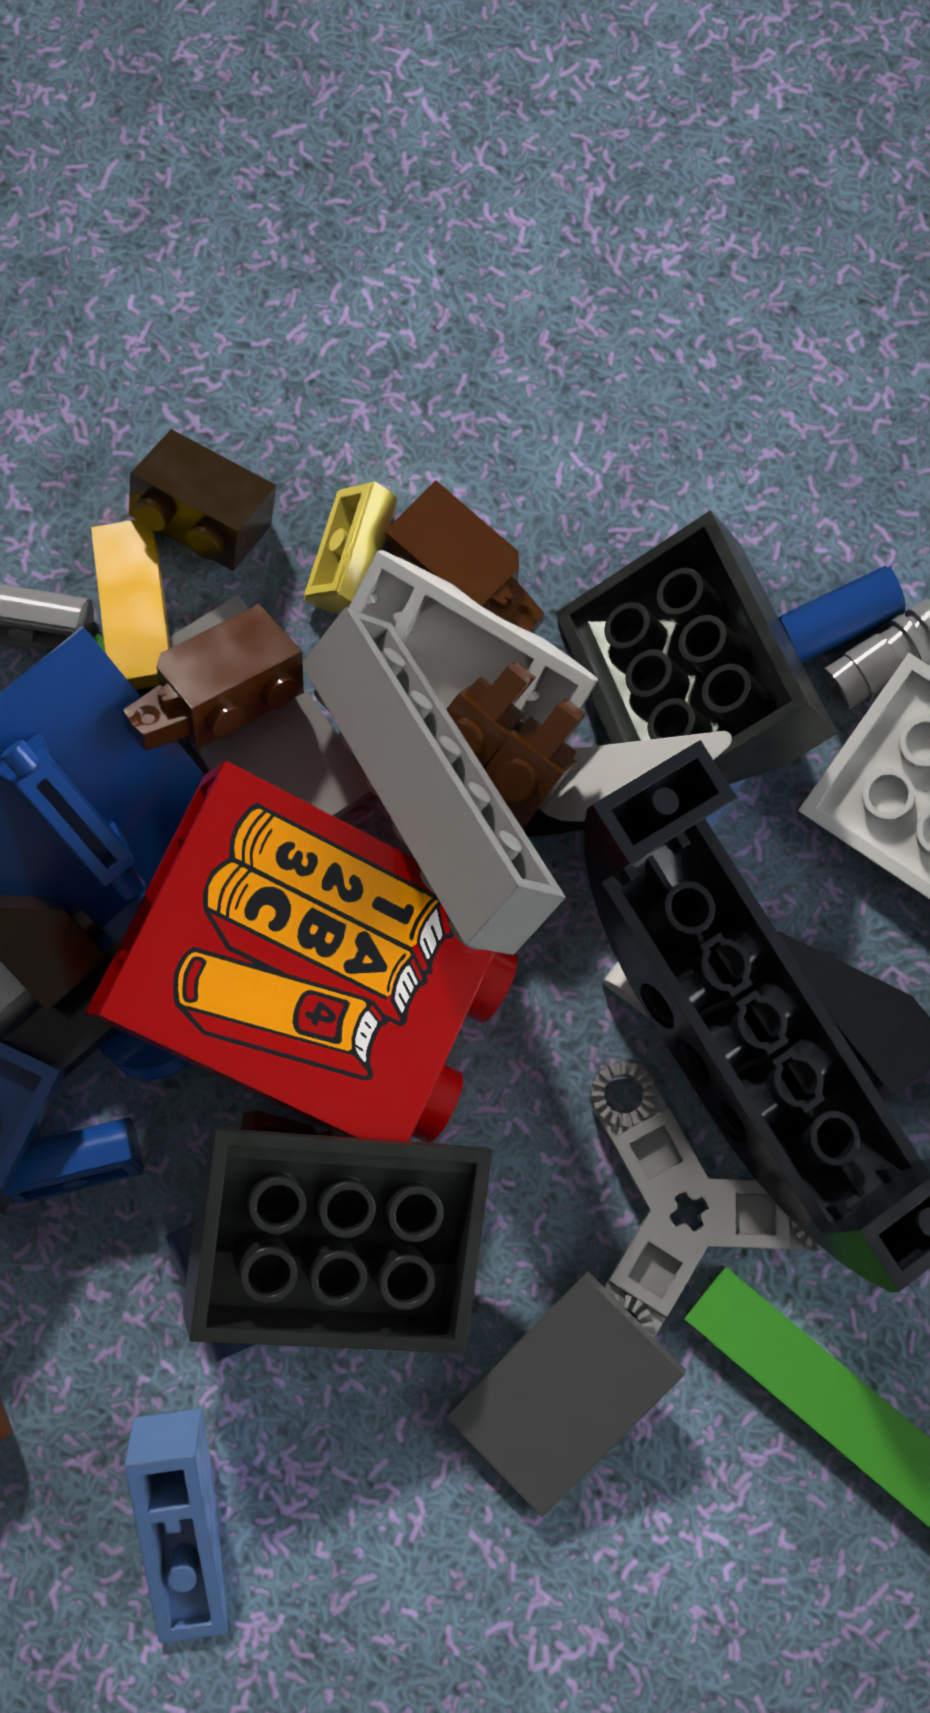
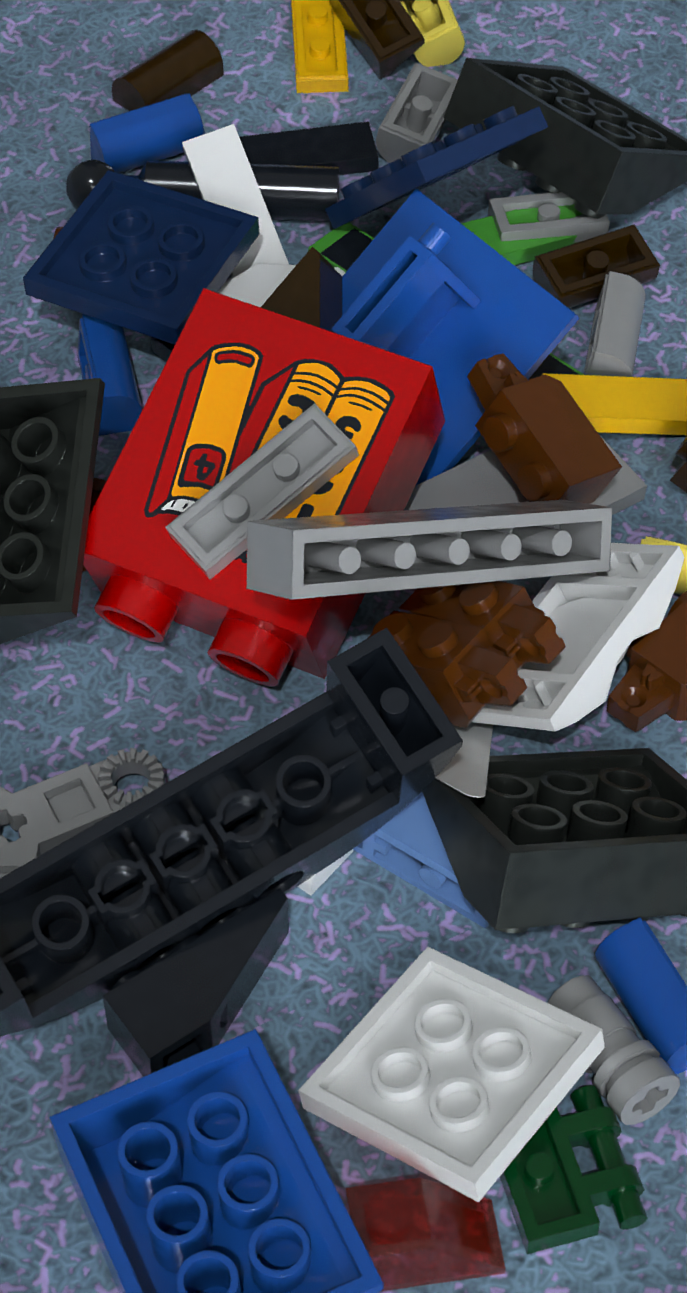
camera: 90 degrees right, 25 degrees down
(362, 948) = (262, 489): none -> light grey tile

